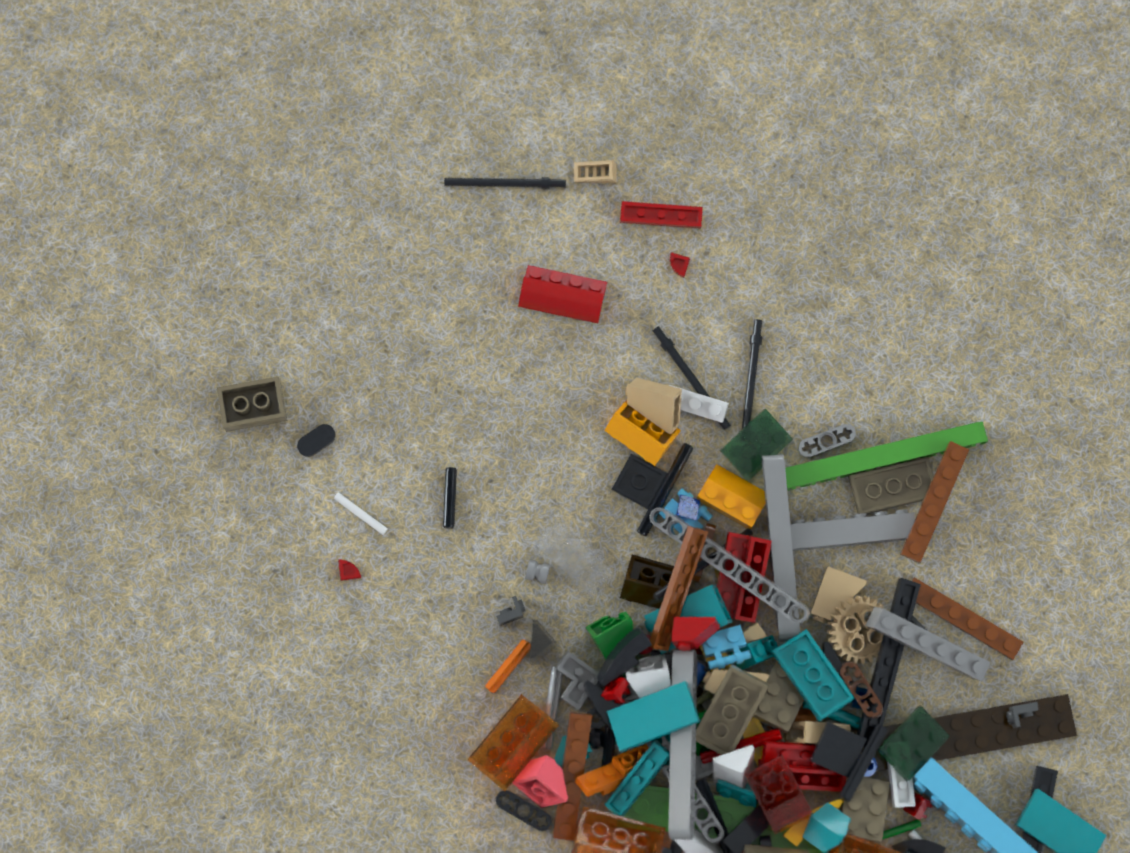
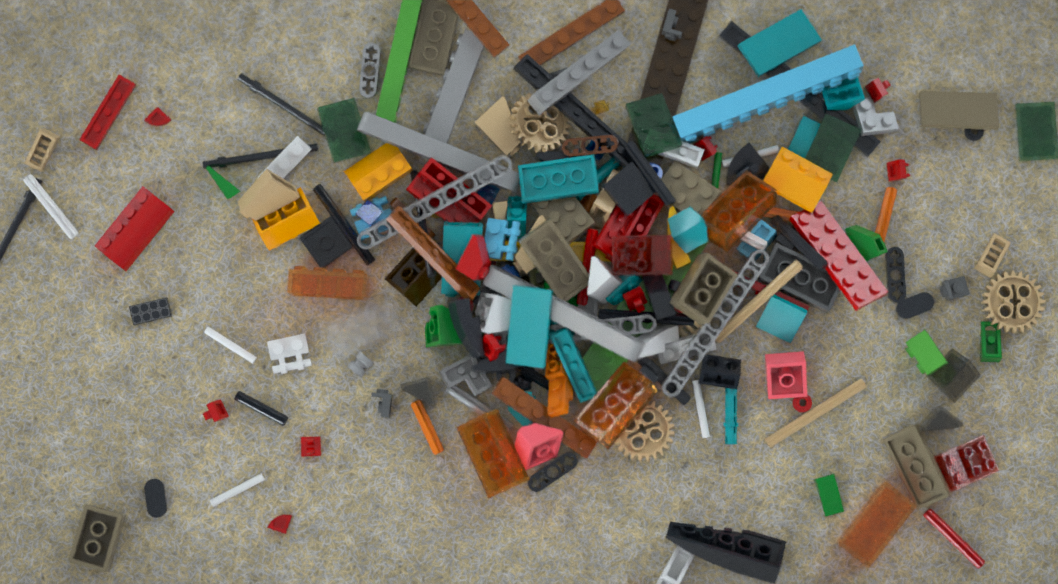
camera: 65 degrees left, 5 degrees up
(426, 456) = (216, 411): none -> red tile
(436, 563) = (310, 446): none -> red tile
(491, 348) = (150, 311): none -> black tile
(496, 439) = (231, 345): none -> white bar
(521, 496) = (287, 348): none -> white plate
(545, 206) = (50, 206): none -> white axle
(599, 502) = (328, 284): none -> clear orange brick
(645, 360) = (225, 186): none -> green slope
(732, 809) = (635, 299): none -> red tile
(765, 614) = (489, 193): none -> clear blue slope
(905, 682) = (600, 107): none -> clear yellow plate

